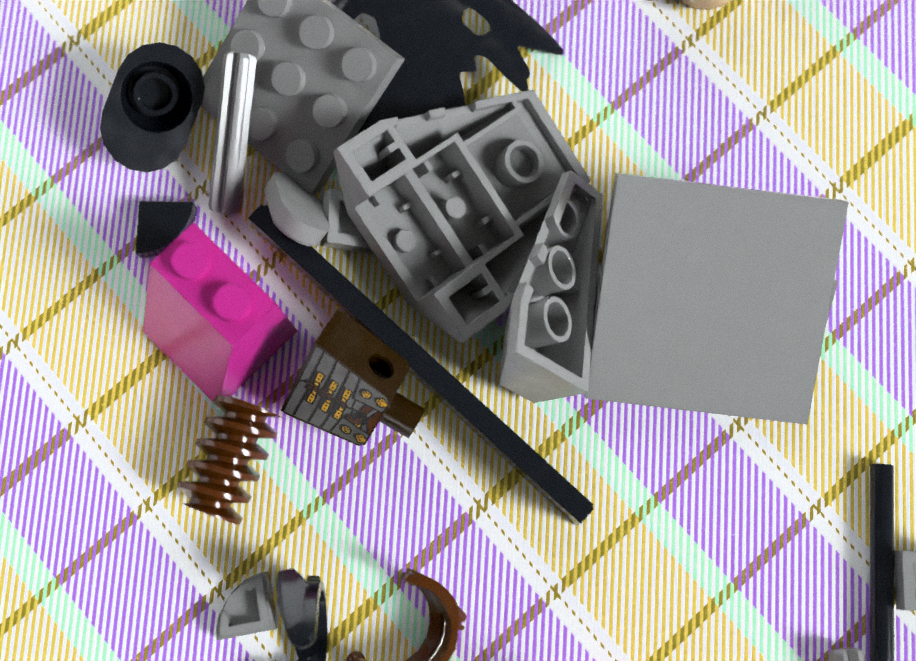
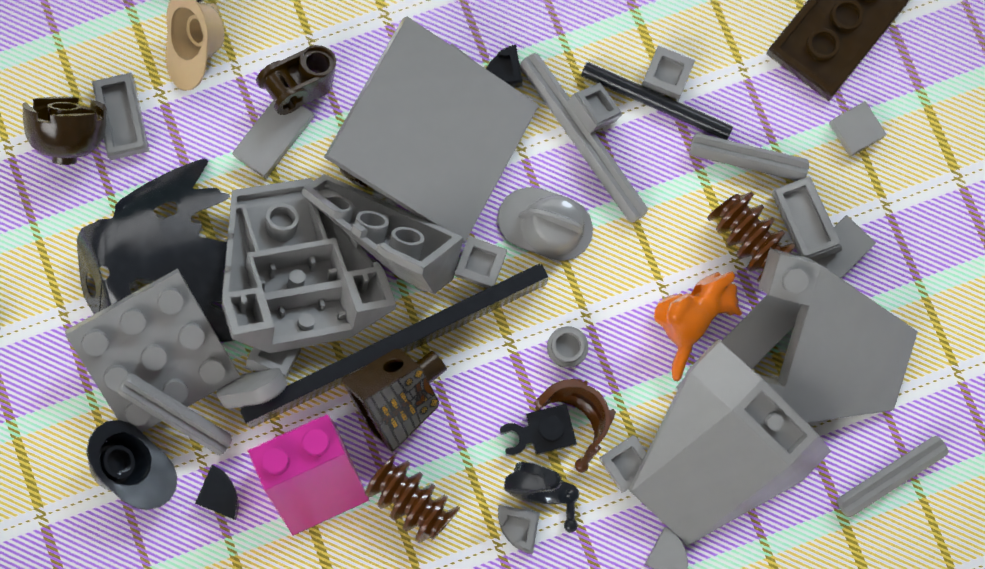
camera: 75 degrees left, 0 degrees up
(383, 598) = (546, 430): none -> black plate
(502, 584) = (567, 347): none -> light grey plate
(567, 429) = (480, 262): none -> light grey plate
(625, 114) = (271, 139): none -> light grey tile
(654, 493) = (545, 223): none -> light grey piece
(706, 109) = (293, 81): none -> dark brown piece
(788, 501) = (586, 143): none -> light grey axle
(835, 499) = (594, 107): none -> light grey tile
(839, 363) = (507, 66): none -> black tile

